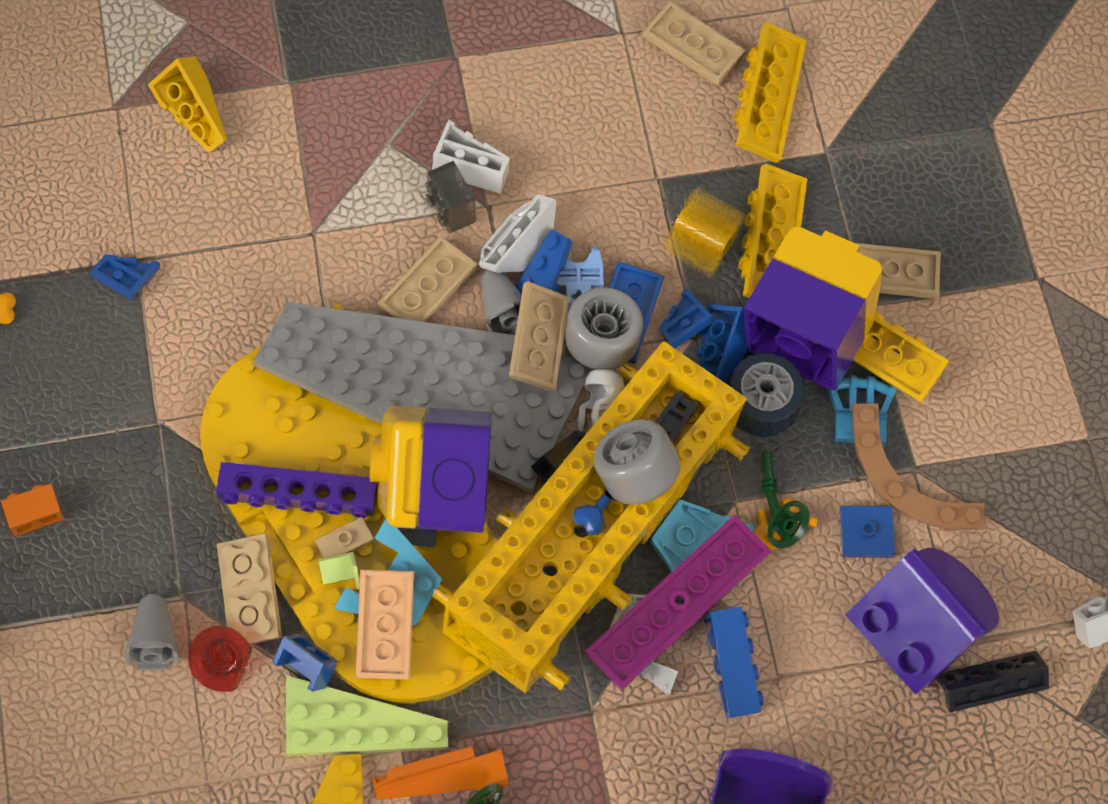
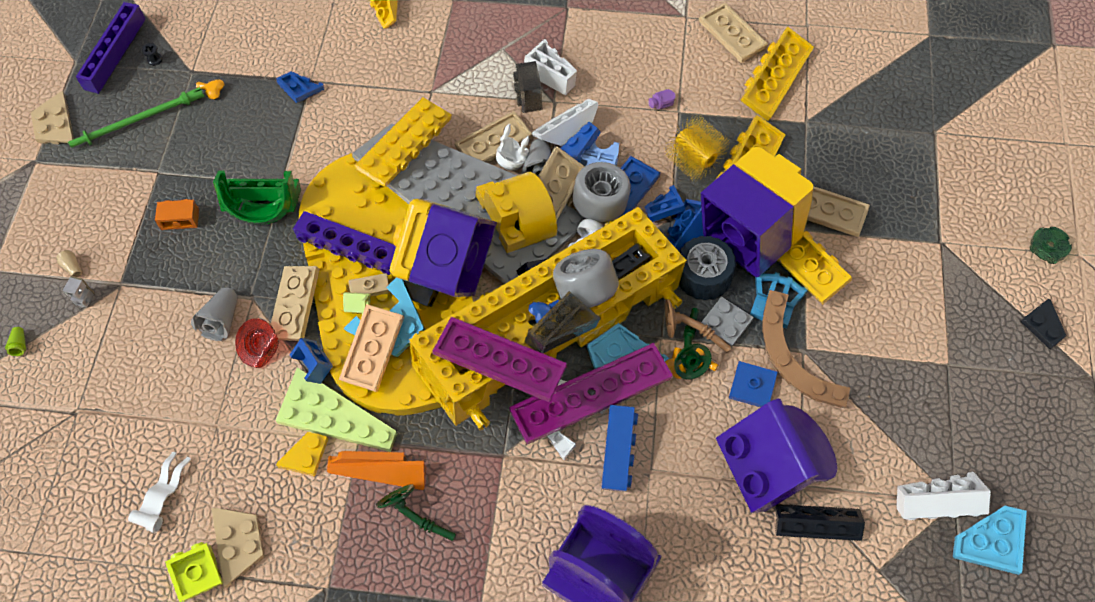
camera: 25 degrees right, 5 degrees down
(111, 450) = (282, 192): none -> green piece
(318, 326) = (403, 142): none -> yellow plate
(460, 302) = (509, 153): none -> white hair
(501, 370) = (523, 200): none -> yellow piece
(569, 598) = (500, 359): none -> magenta plate
(629, 531) = (561, 324): none -> clear smoke wedge
(632, 167) = (662, 99): none -> medium lavender arm
(746, 474) = (674, 318): none -> medium nougat dish
(809, 458) = (727, 321): none -> light grey plate

